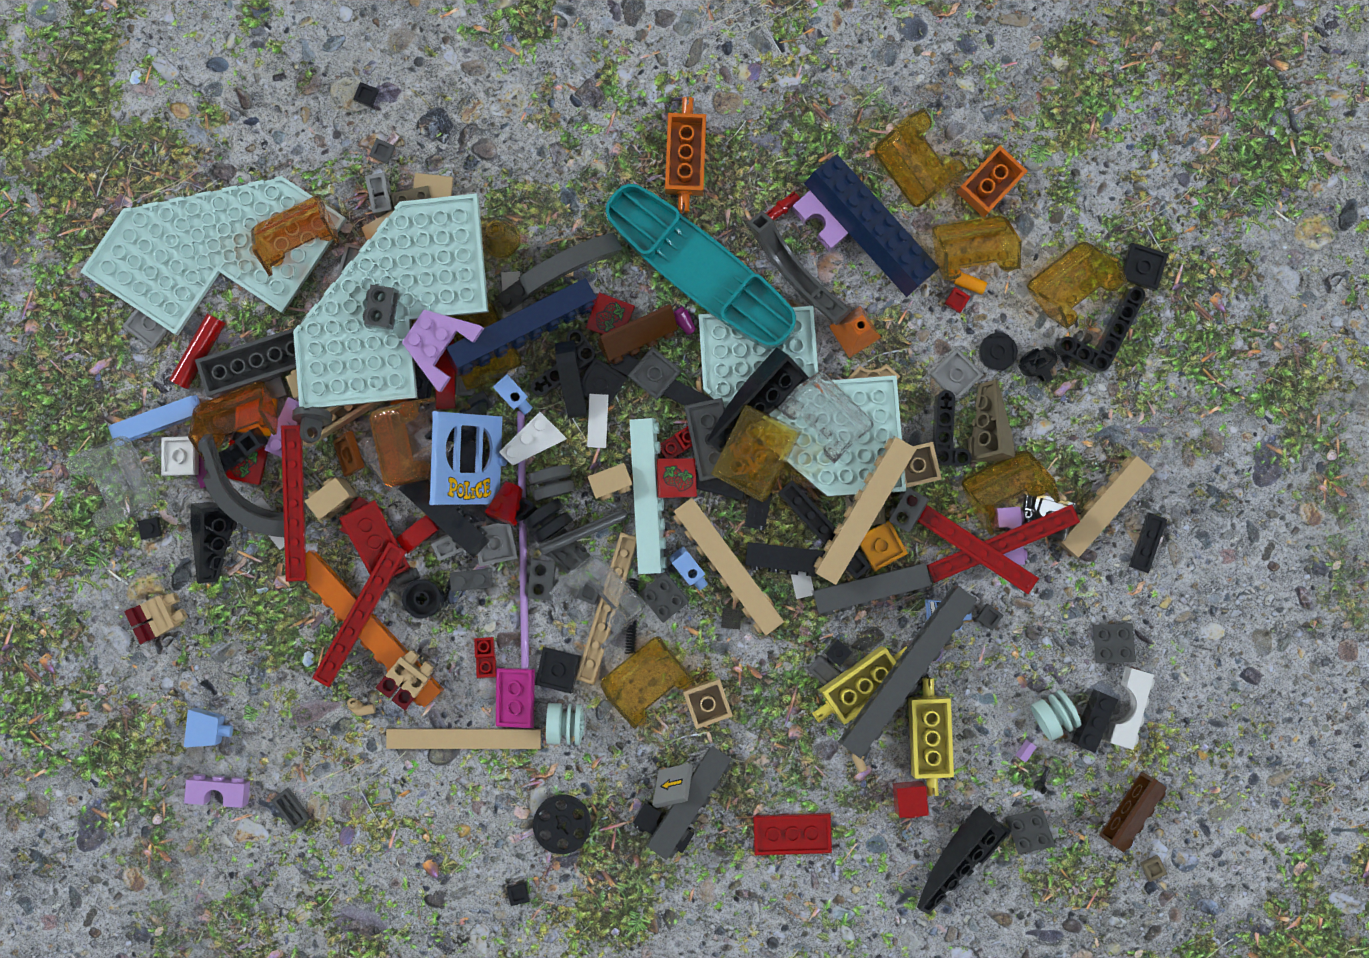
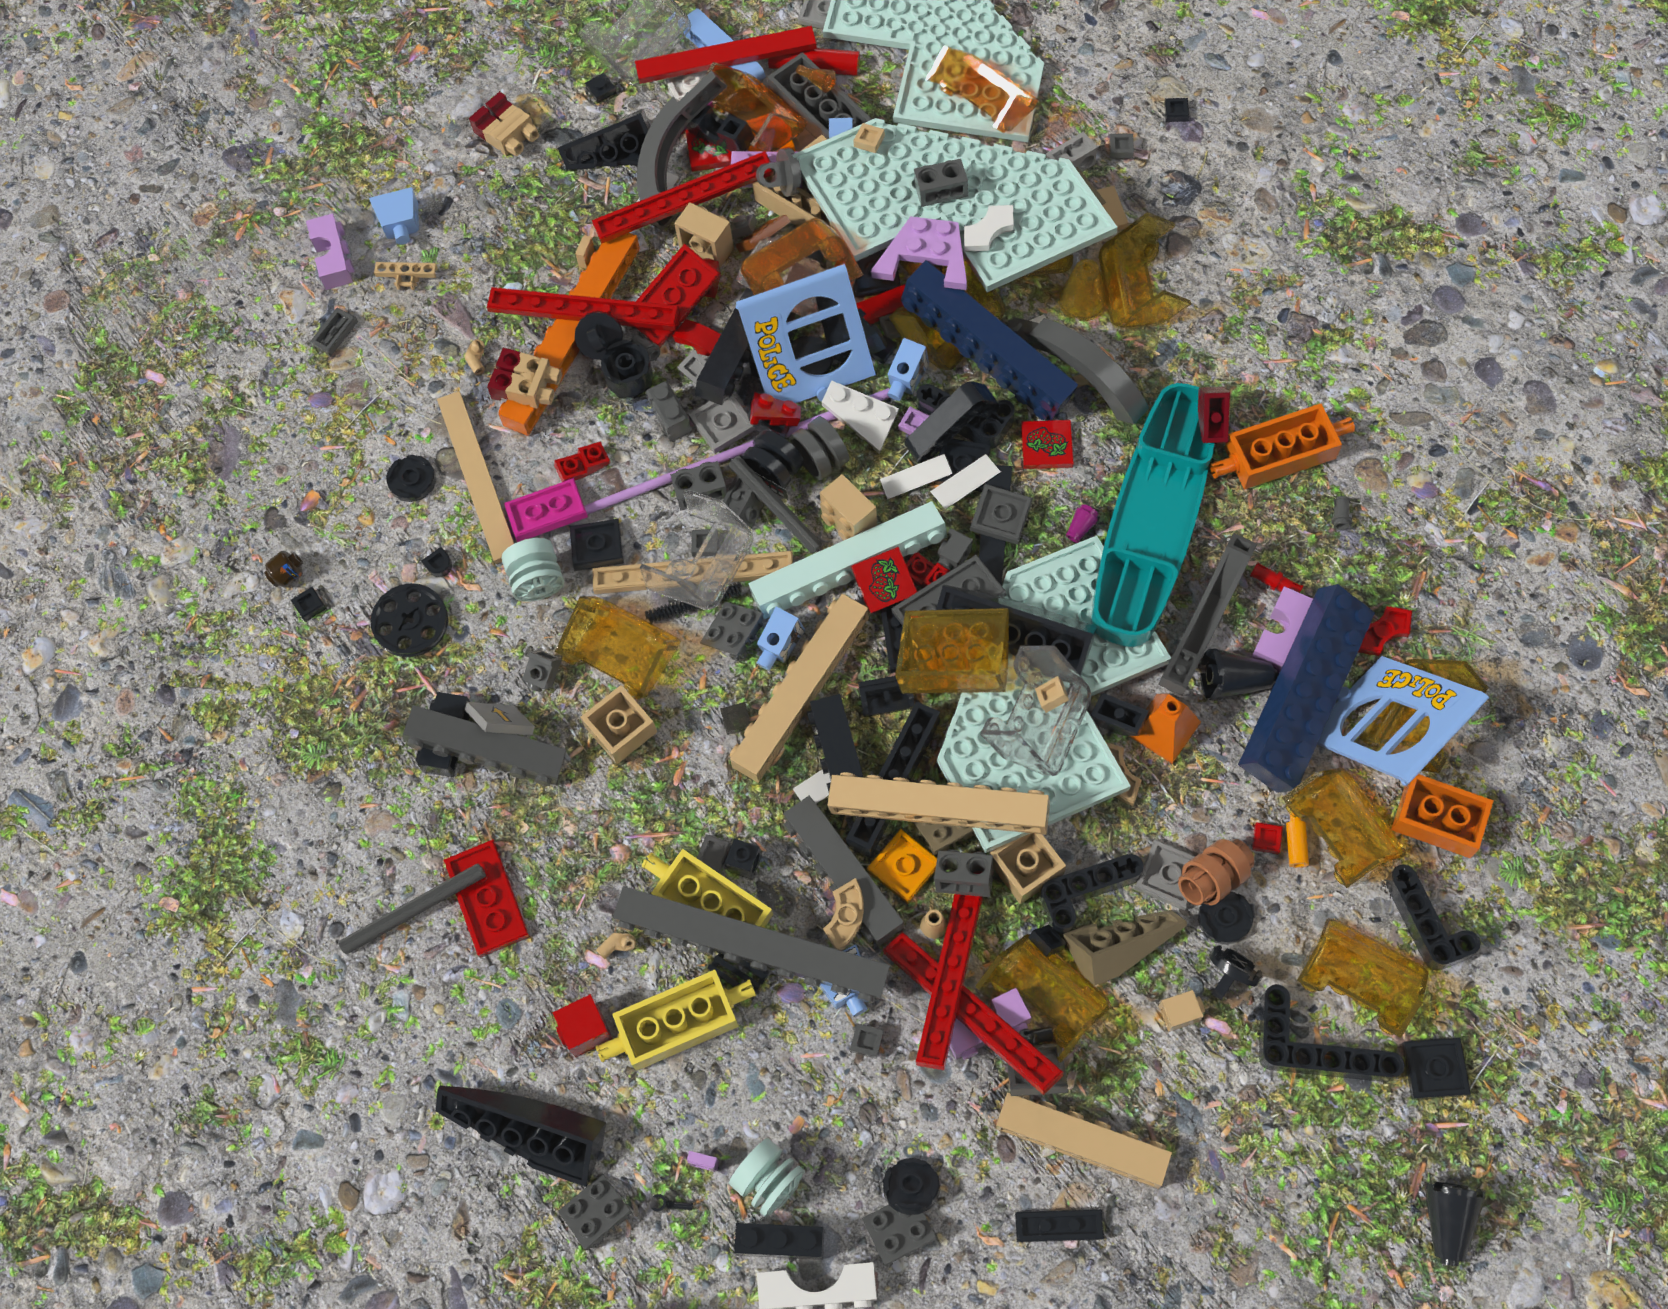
camera: 75 degrees right, 20 degrees down
(168, 420) = (726, 54): none -> red tile
(231, 355) = (822, 78): none -> clear orange cone
(267, 731) = (415, 275): none -> tan piece
(284, 359) = (839, 125): none -> light blue tile
(302, 593) = (585, 251): none -> tan tile
(313, 344) = (869, 138): none -> tan plate
(332, 465) = (743, 225): none -> dark grey plate
(388, 610) = (596, 333): none -> black tile
(440, 297) = (980, 235): none -> white tile
(444, 787) = (411, 478): none -> black tile
(485, 904) = (283, 569): none -> dark brown head
(503, 199) = (1127, 276): none -> clear yellow windscreen
(524, 789) = (438, 563): none -> black tile
(552, 403) = (912, 420): none -> lavender tile
(617, 388) = (965, 481): none -> white sticker
(638, 334) = (1039, 472): reddish brown slope -> none
(643, 743) = (547, 666): none -> dark grey brick
(646, 191) = (1214, 414): none -> dark red slope
(670, 419) = (955, 550): none -> dark grey brick
(749, 138) = (1341, 513): none -> dark grey pin
(782, 885) = (412, 908): none -> dark grey axle
(816, 400) = (1052, 694): none -> tan tile
(841, 269) = (1234, 674): none -> black cone
(842, 359) = (1119, 716): none -> black slope
(843, 145) = (1393, 624): none -> red tile
(908, 598) = (847, 916): none -> tan tile
(921, 147) = (1442, 700): none -> light blue door
(925, 542) = (933, 930): none -> tan cone
(971, 473) = (1047, 940): none -> black tile
(976, 352) = (1216, 872): none -> nougat piece
(1049, 224) = (1427, 916): none -> black beam
(1049, 408) = (1181, 1010): none -> tan brick
(1091, 625) = (911, 1186): none -> black tile
(1237, 302) = (1452, 1219): none -> black cone

